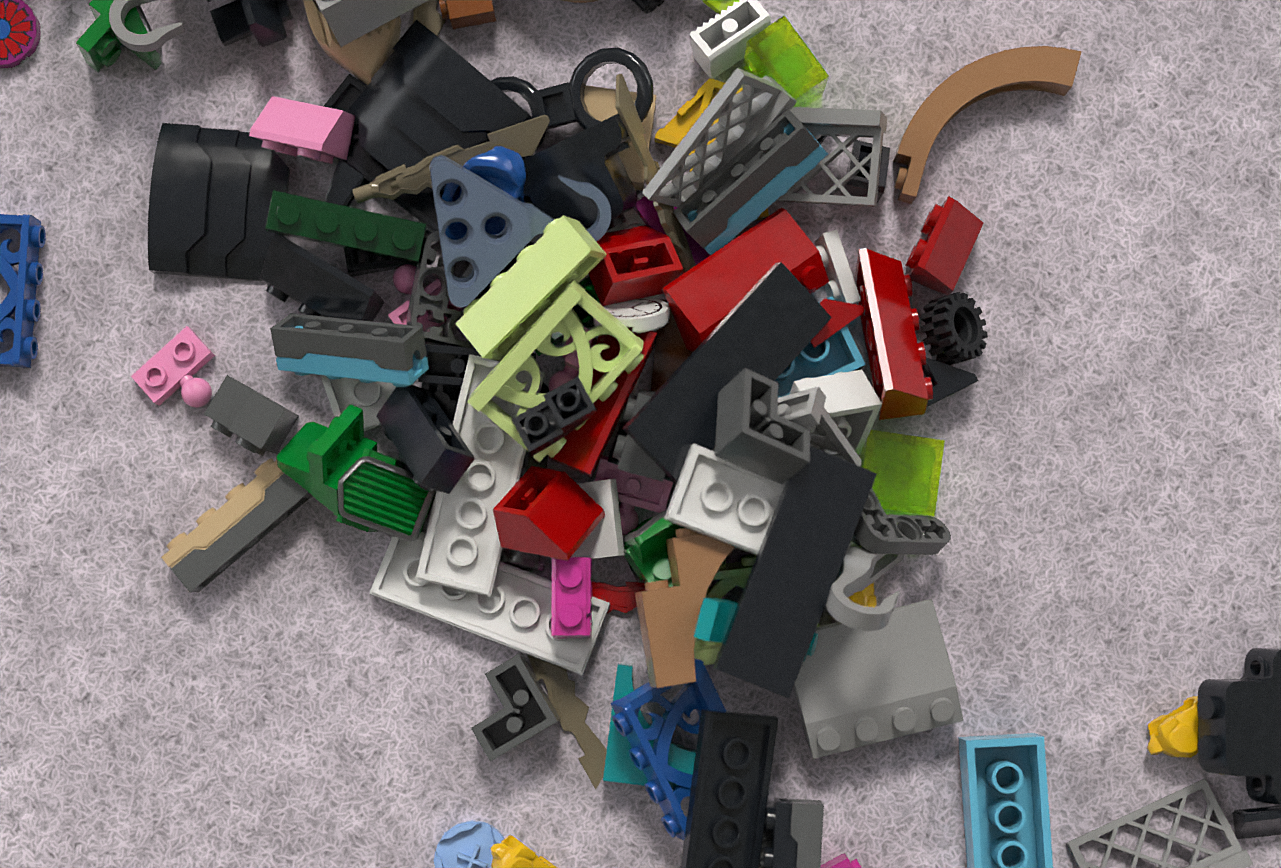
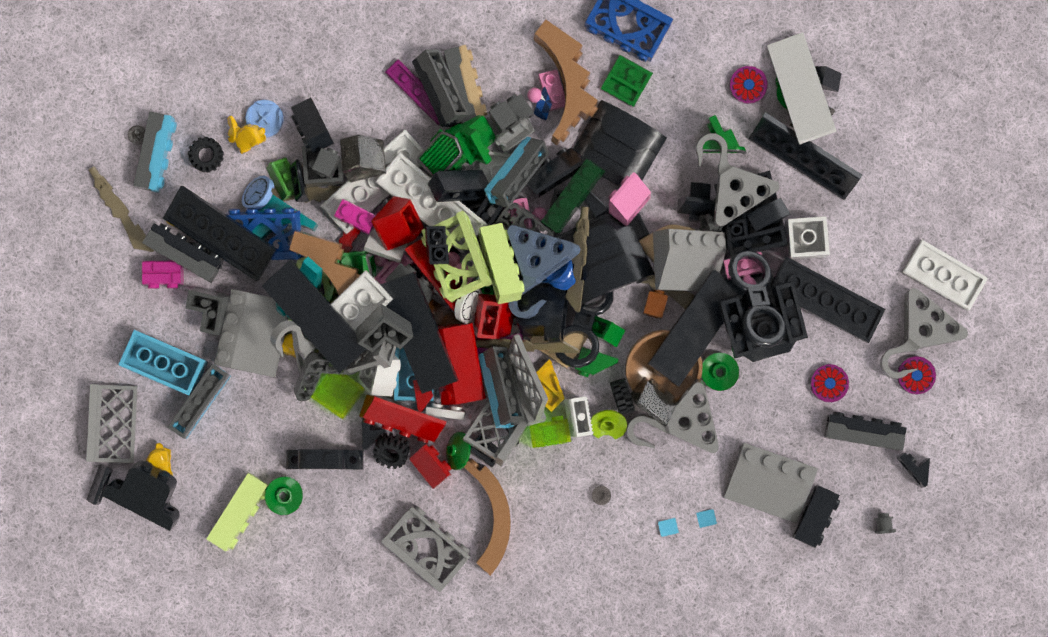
camera: 115 degrees right, 0 degrees up
(93, 244) = (626, 80): none -> green slope
(95, 374) = (565, 54): none -> medium nougat arch
(208, 366) = (543, 105): none -> dark blue sticker
(262, 564) = (440, 88): none -> dark grey piece
(284, 387) = (515, 135): none -> light grey hinge
(290, 604) = (412, 87): none -> magenta tile
(445, 762) = (311, 126): none -> black brick
(457, 640) = (362, 157): none -> clear smoke slope
(499, 698) = (326, 163): none -> dark grey brick
(556, 57) = (607, 331): none -> green slope
(558, 736) = (297, 178): none -> black slope
(564, 767) = (280, 175): none -> bright green slope
(614, 36) = (599, 364): none -> green slope
(614, 800) = (258, 193): none -> light blue tile
(858, 782) = (213, 306): none -> dark grey brick
(898, 213) = (457, 451): none -> green dish
(1031, 439) = (325, 459): none -> black brick
(1042, 714) = (199, 401): none -> dark grey piece
(1131, 158) = (399, 548): none -> light grey fence
(1131, 465) = (292, 499): none -> green dish
(1197, 546) = (238, 512): none -> yellowish green brick

